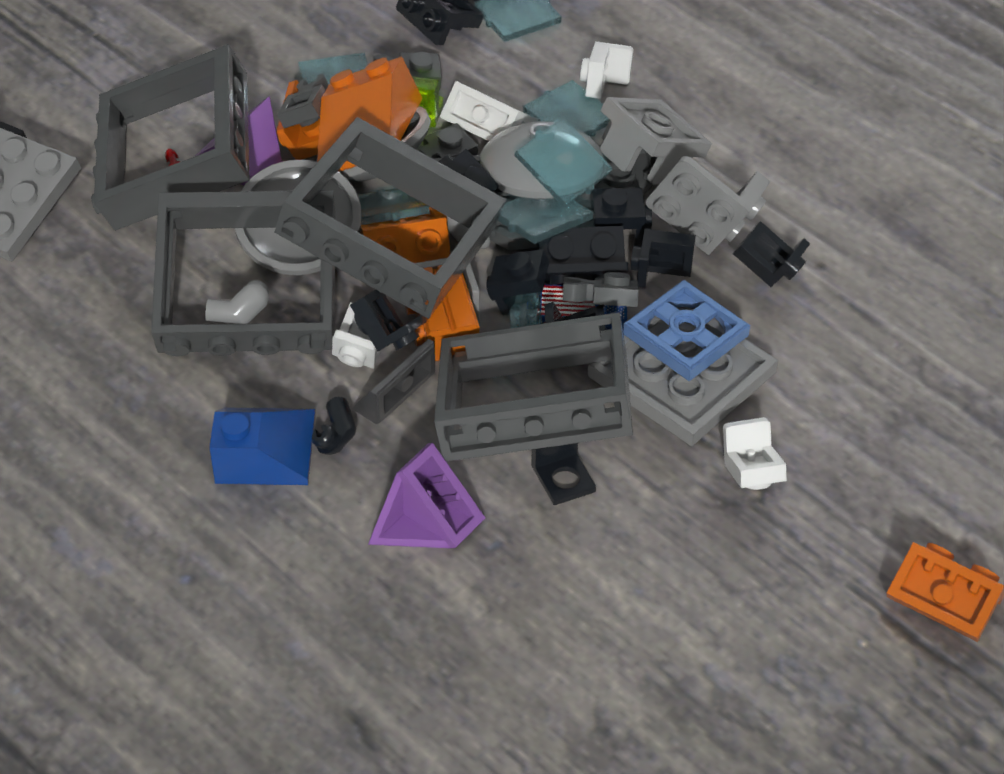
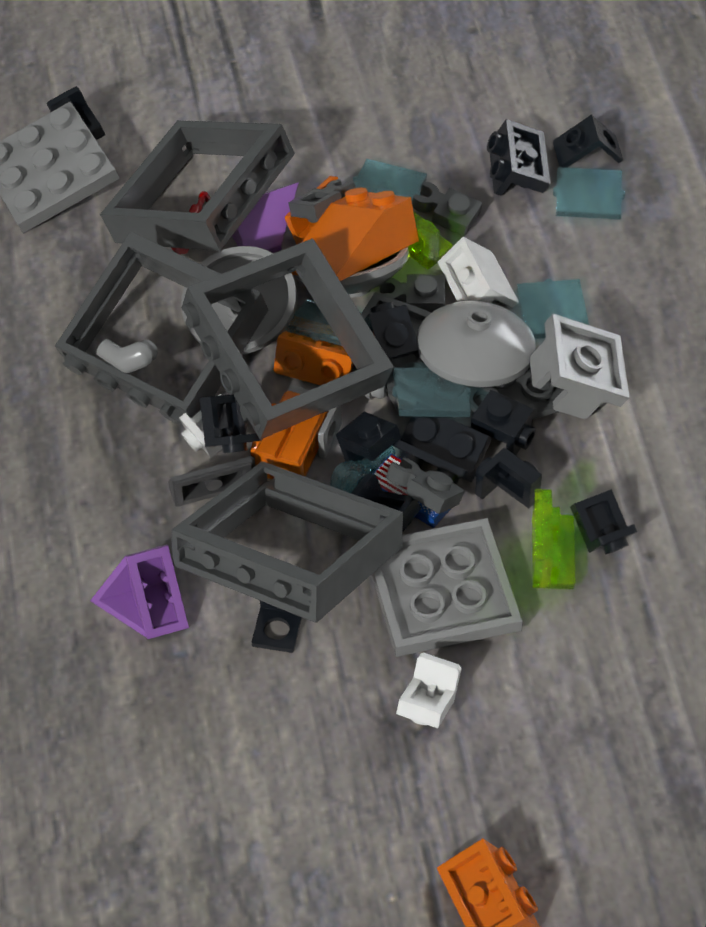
camera: 35 degrees right, 5 degrees up
(262, 445) = (73, 476): blue slope -> none
(340, 430) = (129, 501): black arm -> none
(563, 162) = (476, 355): clear light blue piece -> none
(606, 64) = (606, 278): white bracket -> none
(703, 205) = (563, 458): light grey bracket -> none
(705, 310) = (471, 582): medium blue piece -> none
(742, 288) = (552, 544): none -> clear neon green bracket

